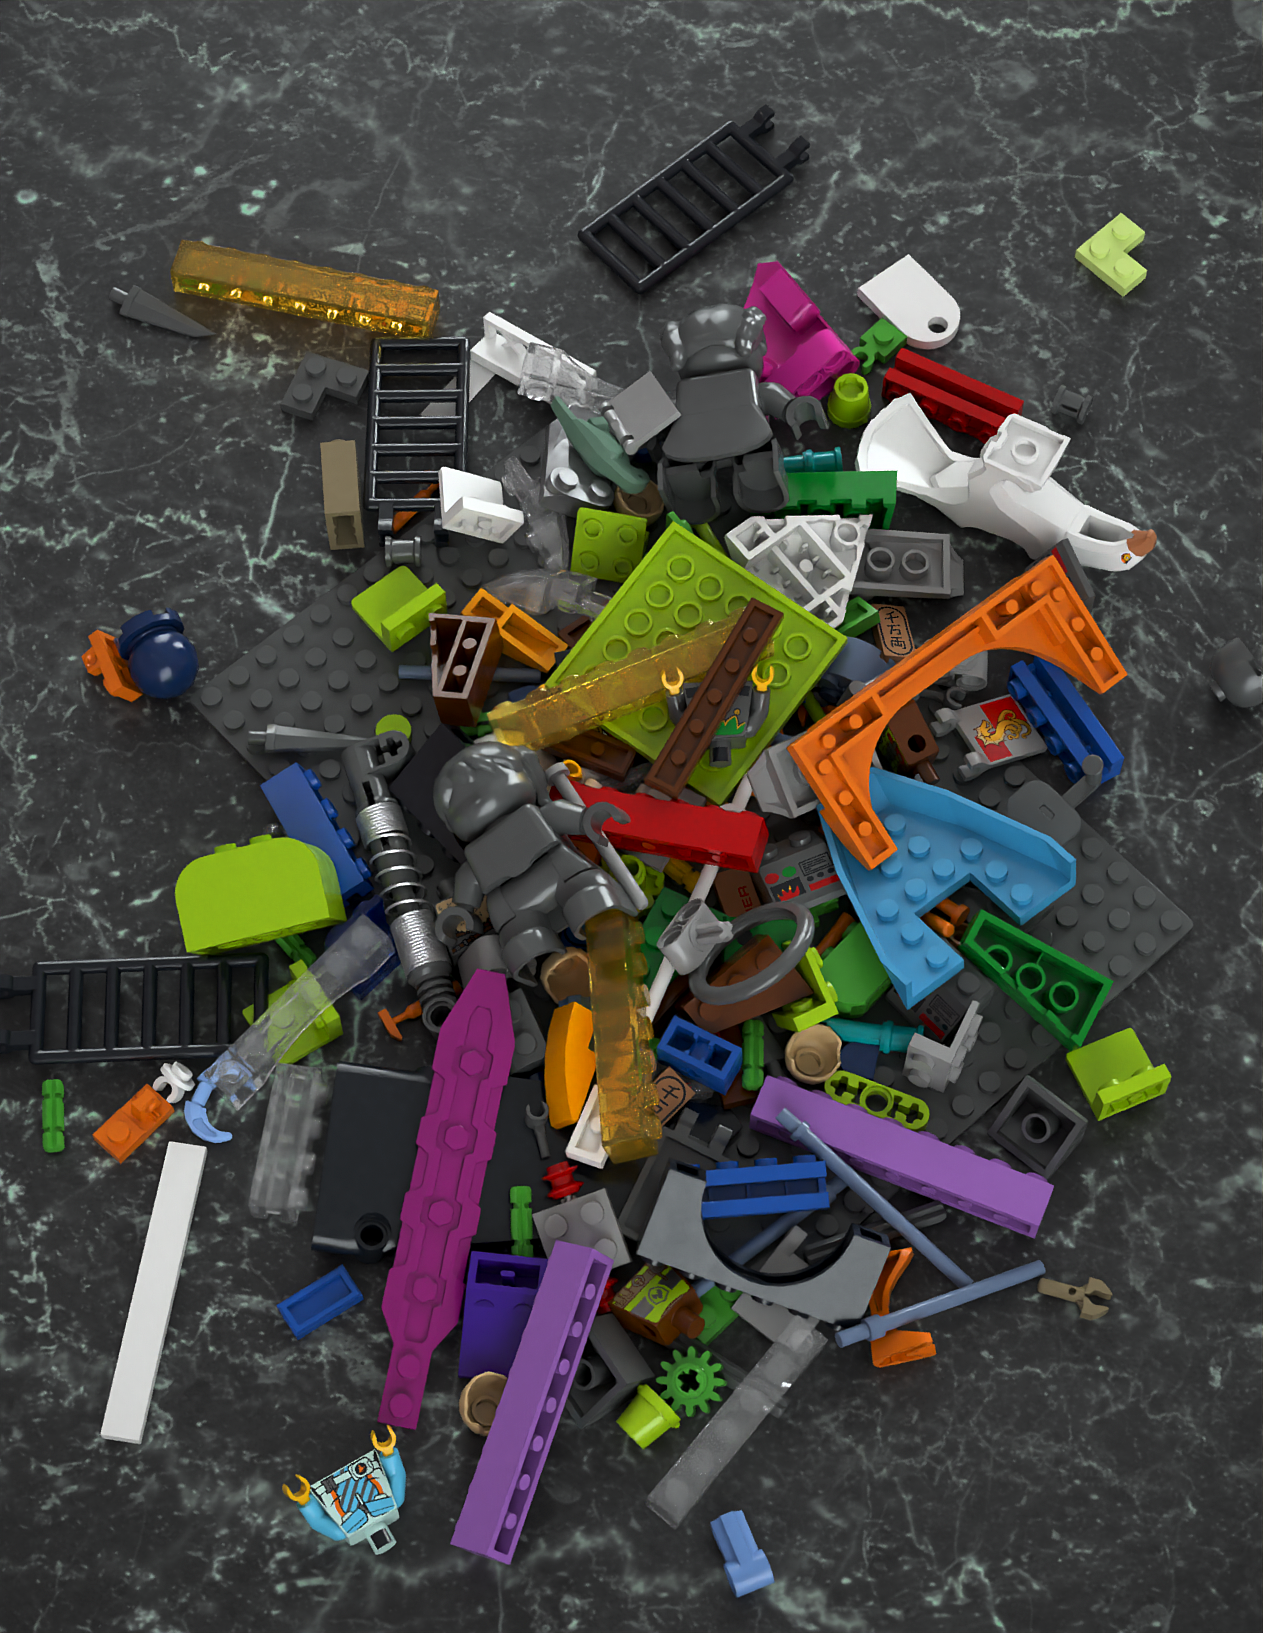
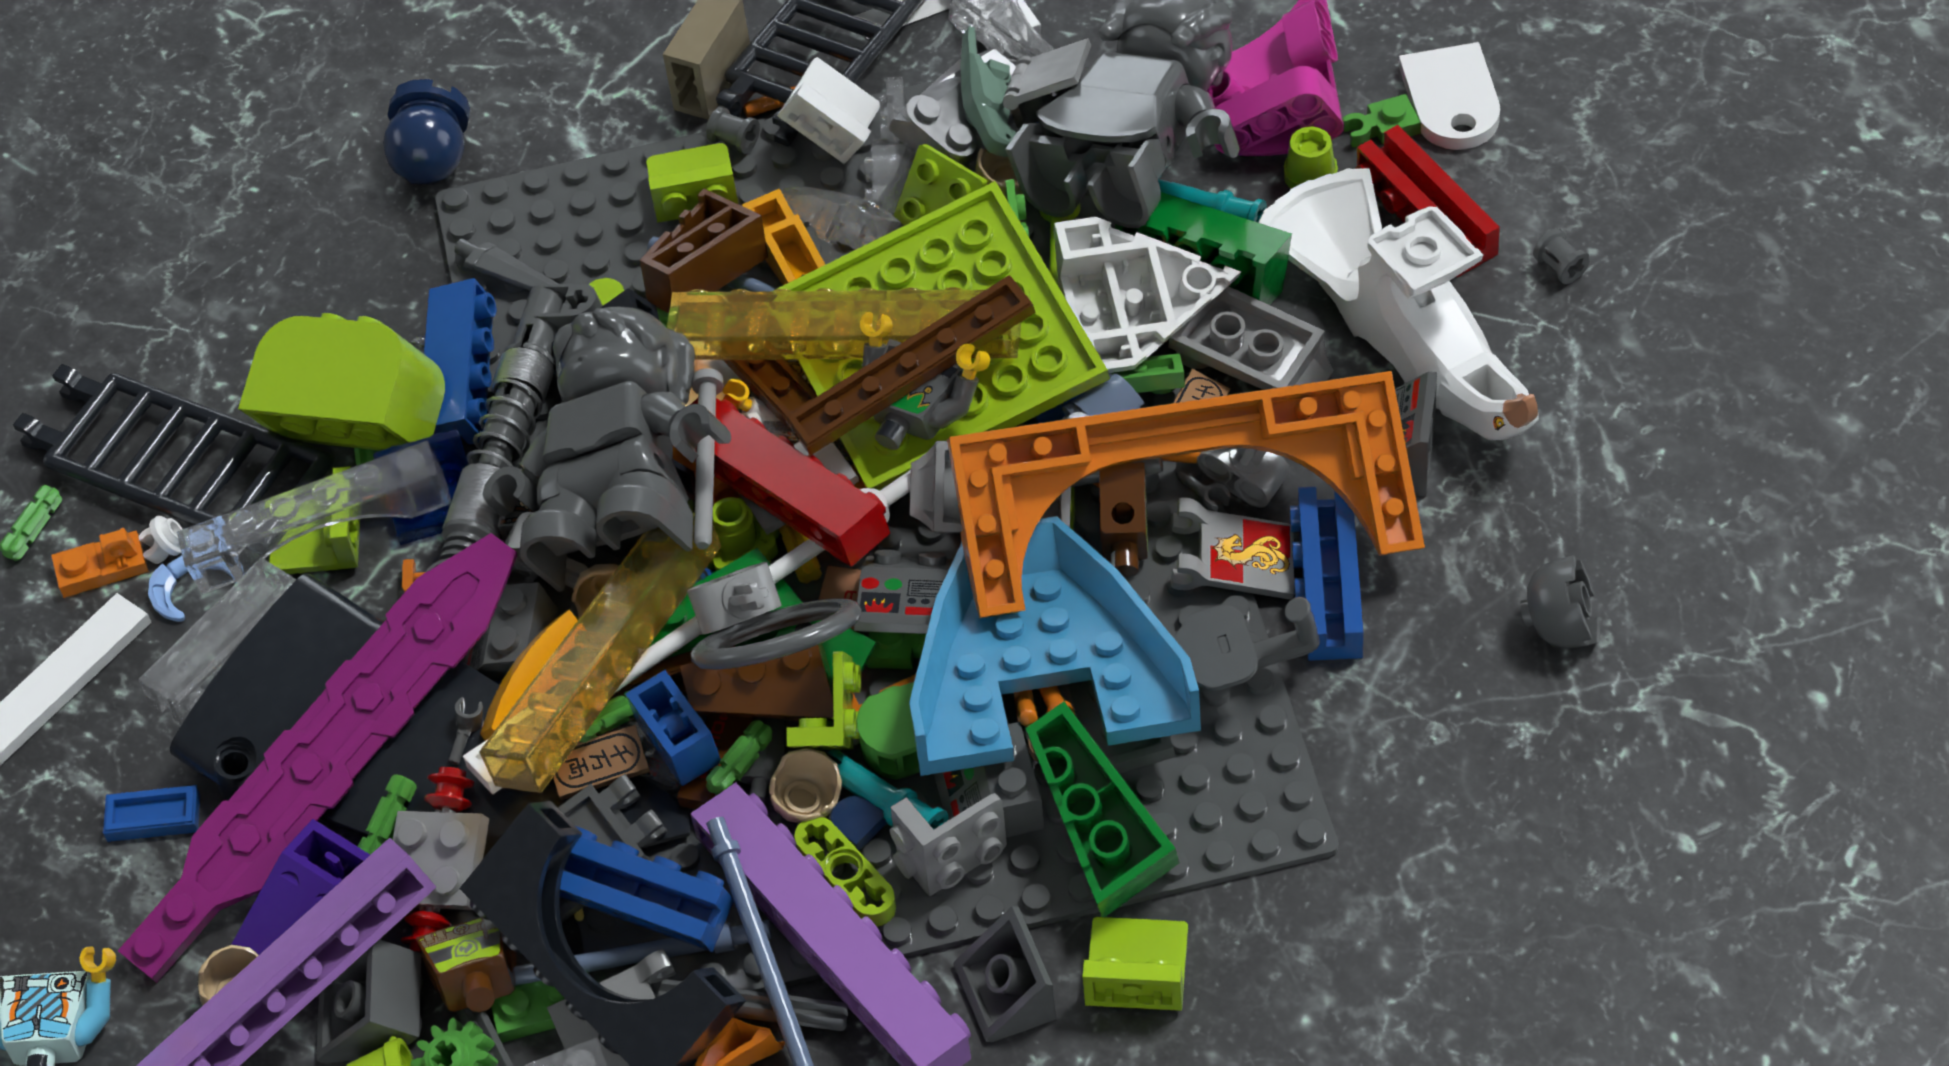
camera: 35 degrees right, 10 degrees down
(105, 659) = (372, 128): orange hinge -> none
(1108, 257) = (1712, 123): yellowish green plate -> none

